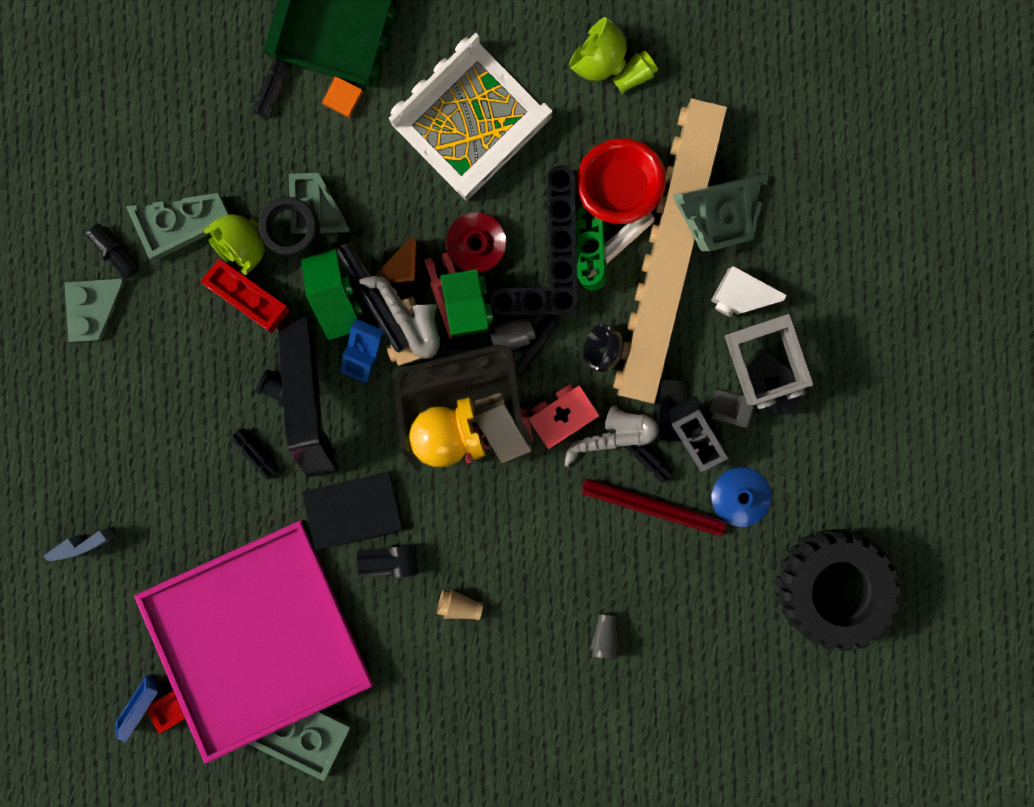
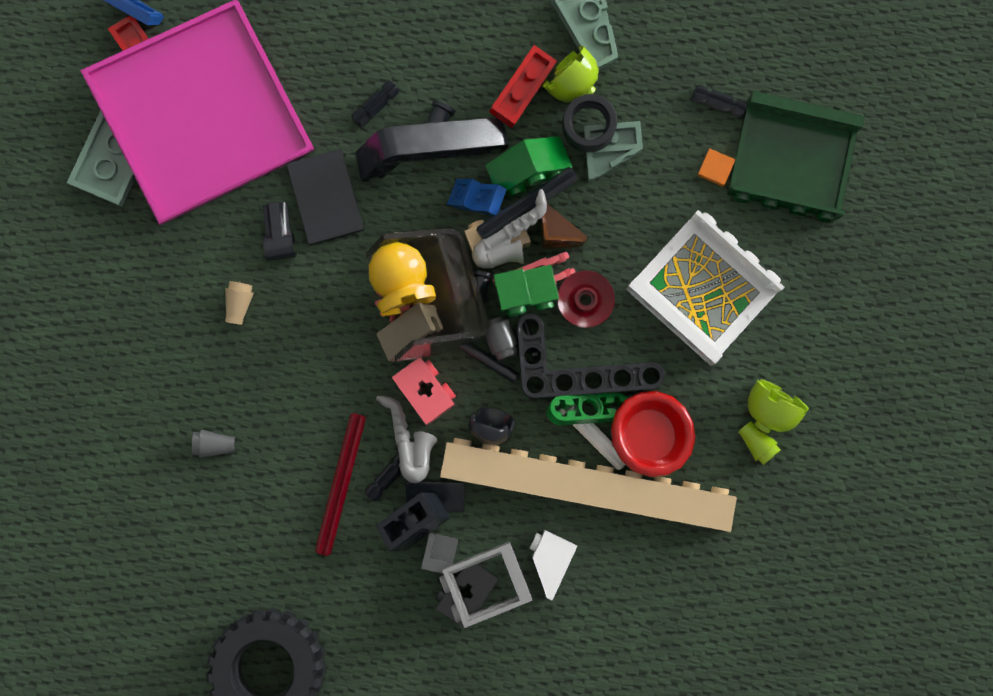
camera: 85 degrees right, 5 degrees down
(722, 212) = (628, 533): sand green wing -> none
(726, 494) = (365, 559): blue dish -> none

